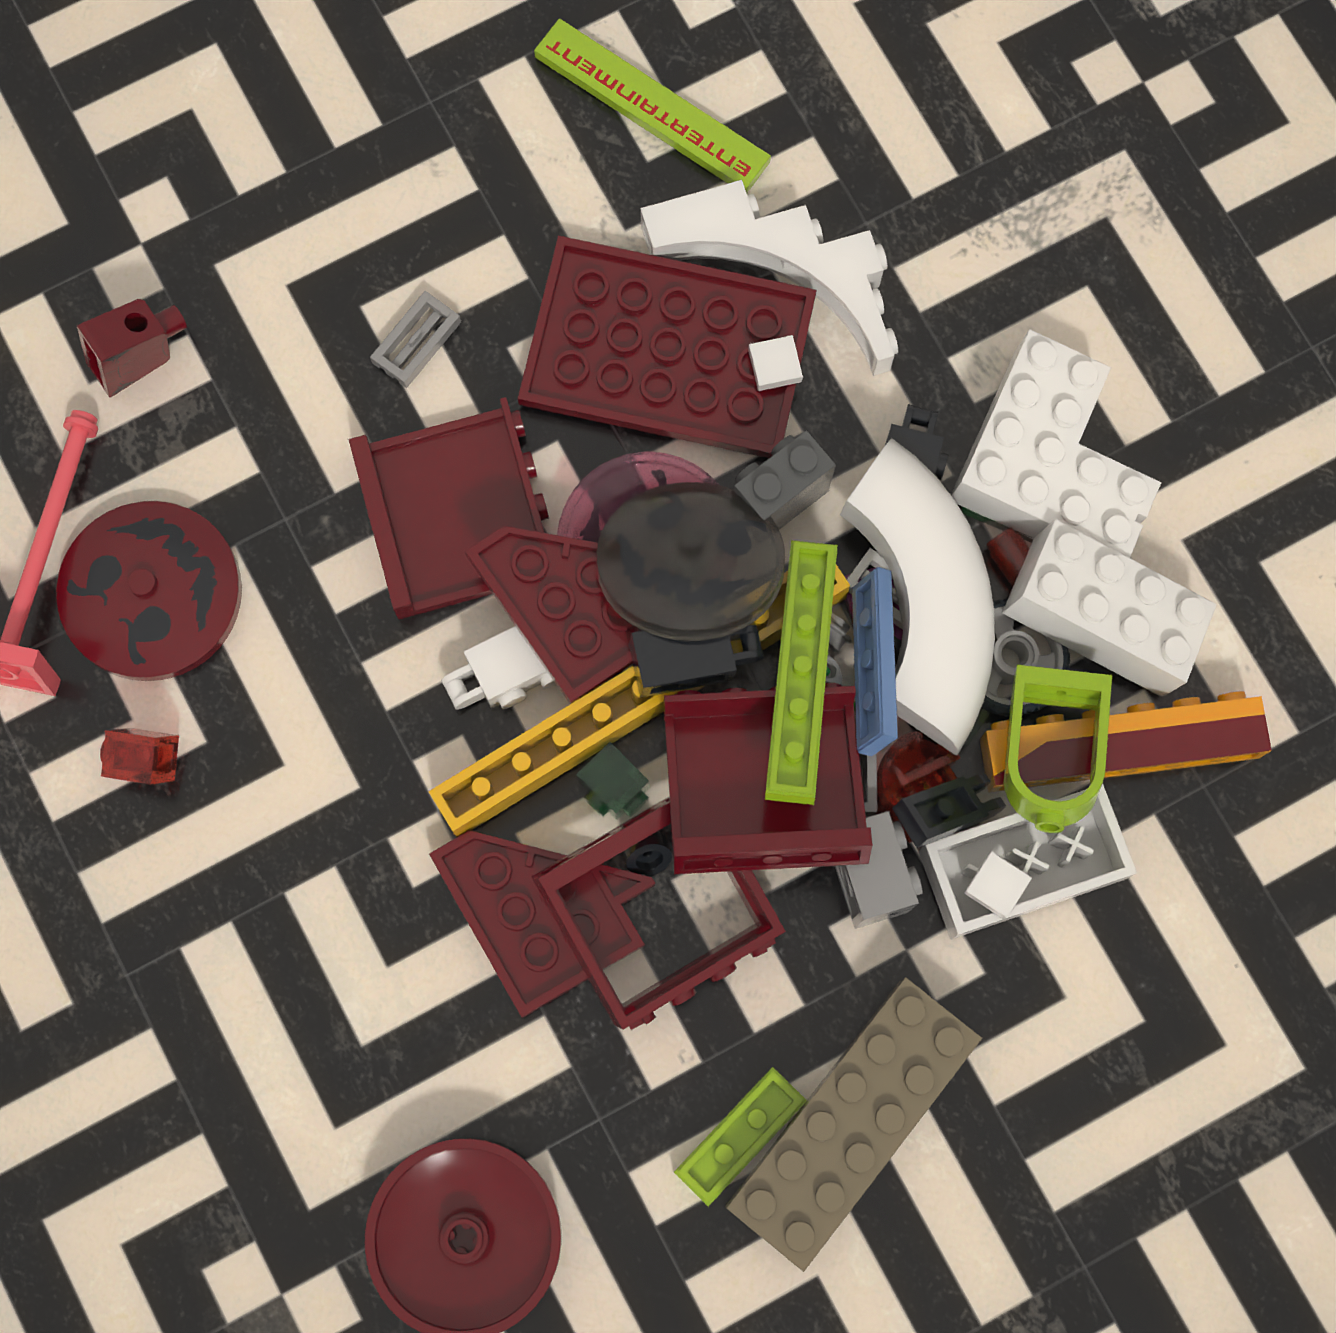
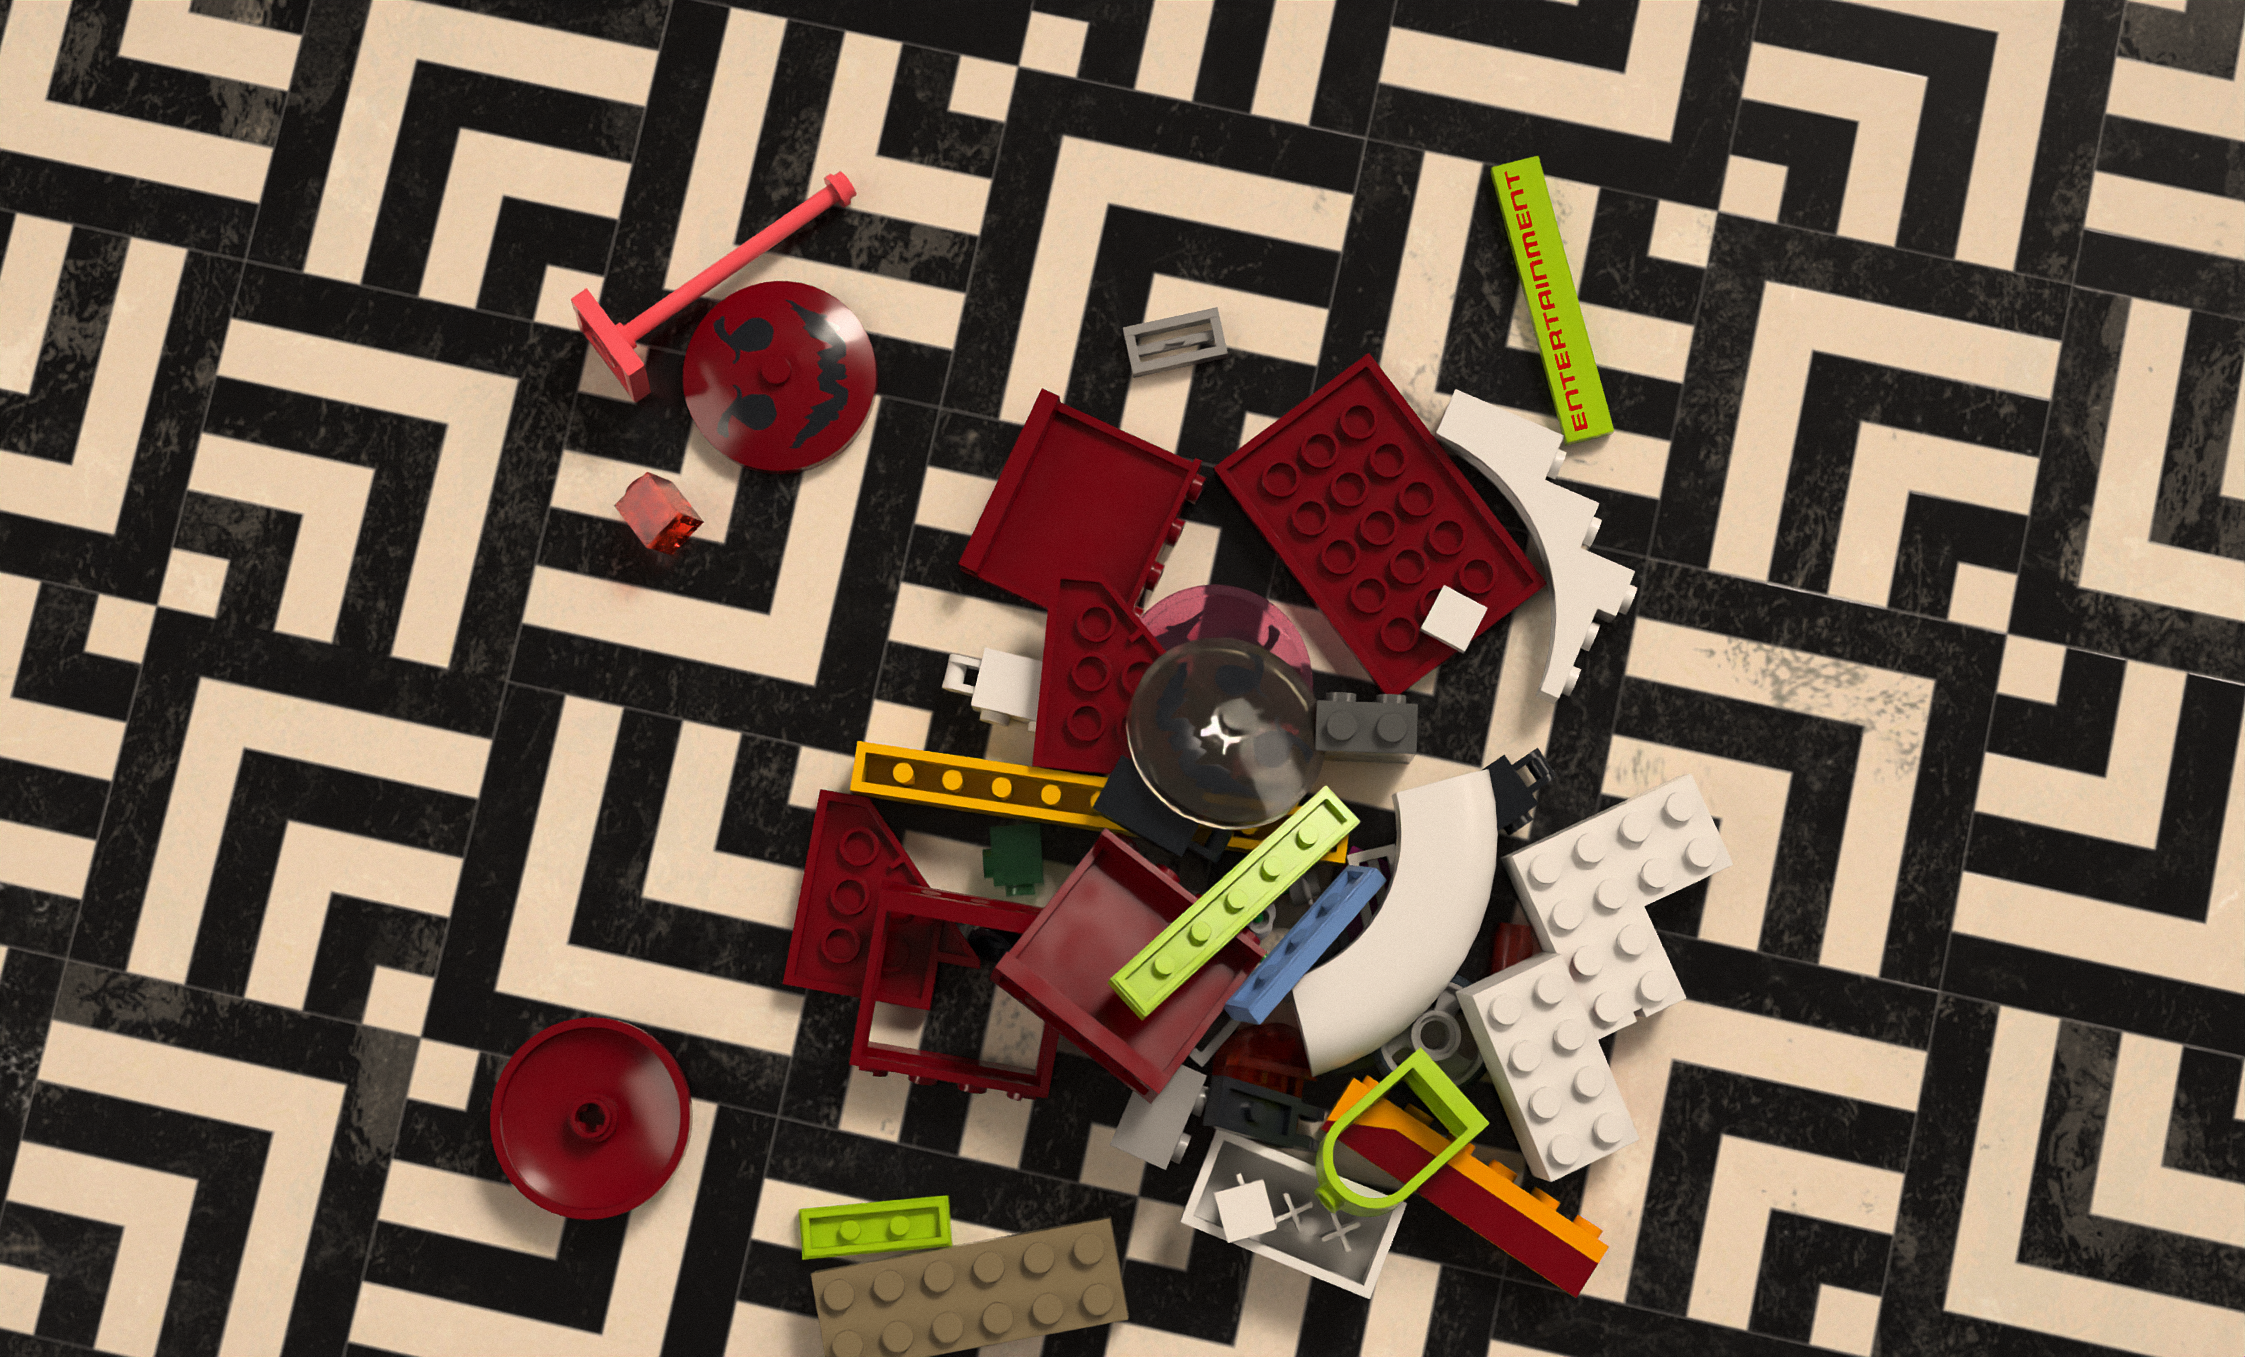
camera: 50 degrees right, 5 degrees up
(128, 343) = (916, 151): dark red torso -> none

